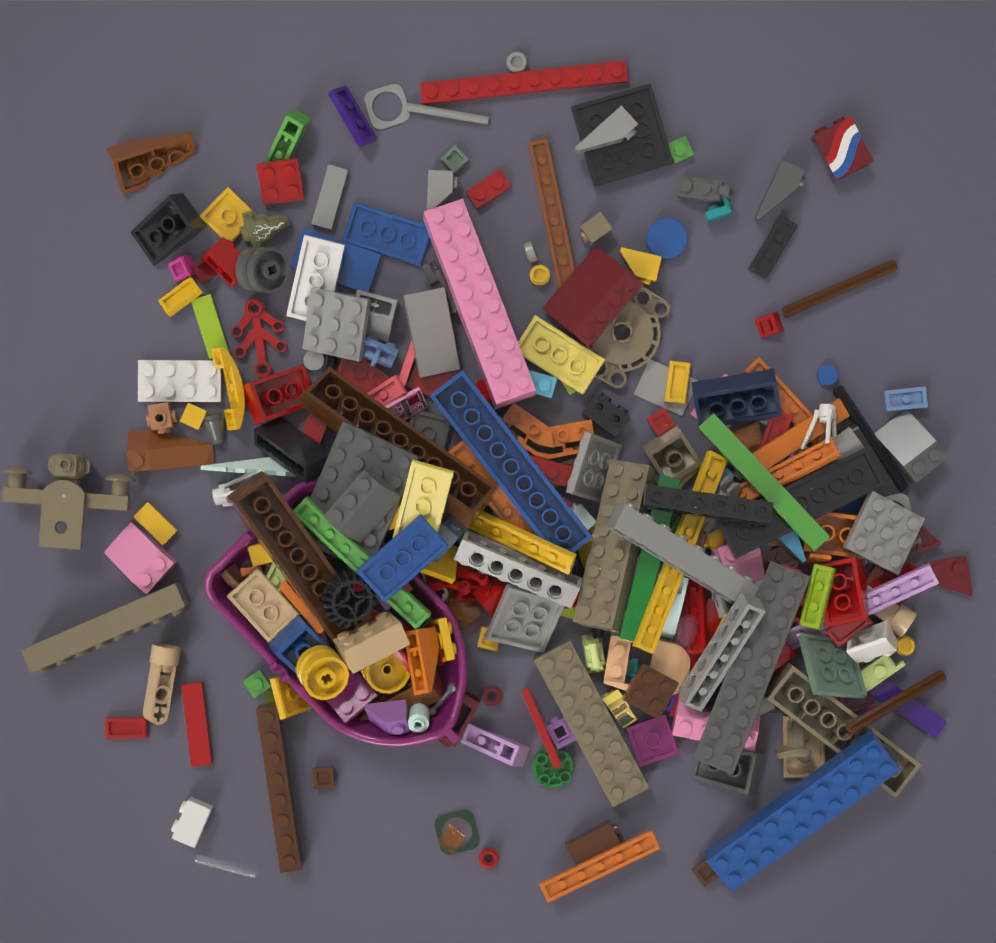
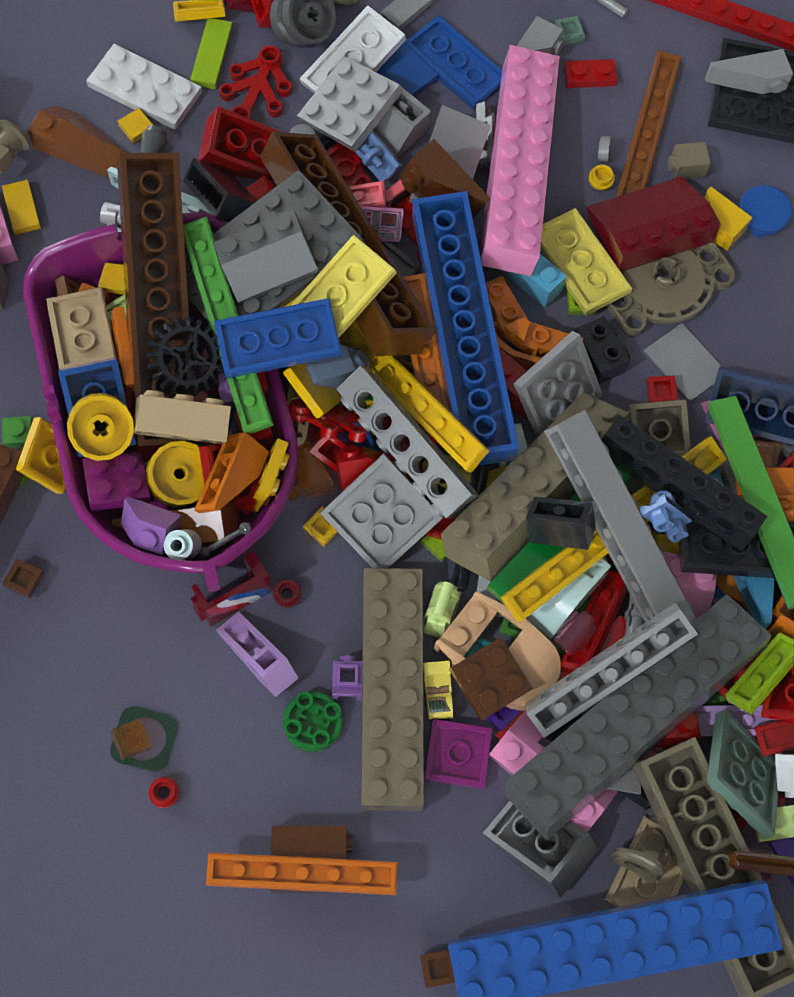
camera: 20 degrees right, 20 degrees down
(155, 412) = (100, 102): nougat brick -> none
(234, 385) = (205, 86): yellow slope -> none
(429, 361) = (437, 173): none -> reddish brown slope
(541, 728) = (326, 660): red tile -> none
(646, 579) = (561, 523): none -> black brick
(677, 382) = (702, 360): yellow tile -> none
(709, 534) = (667, 516): none -> medium blue hips

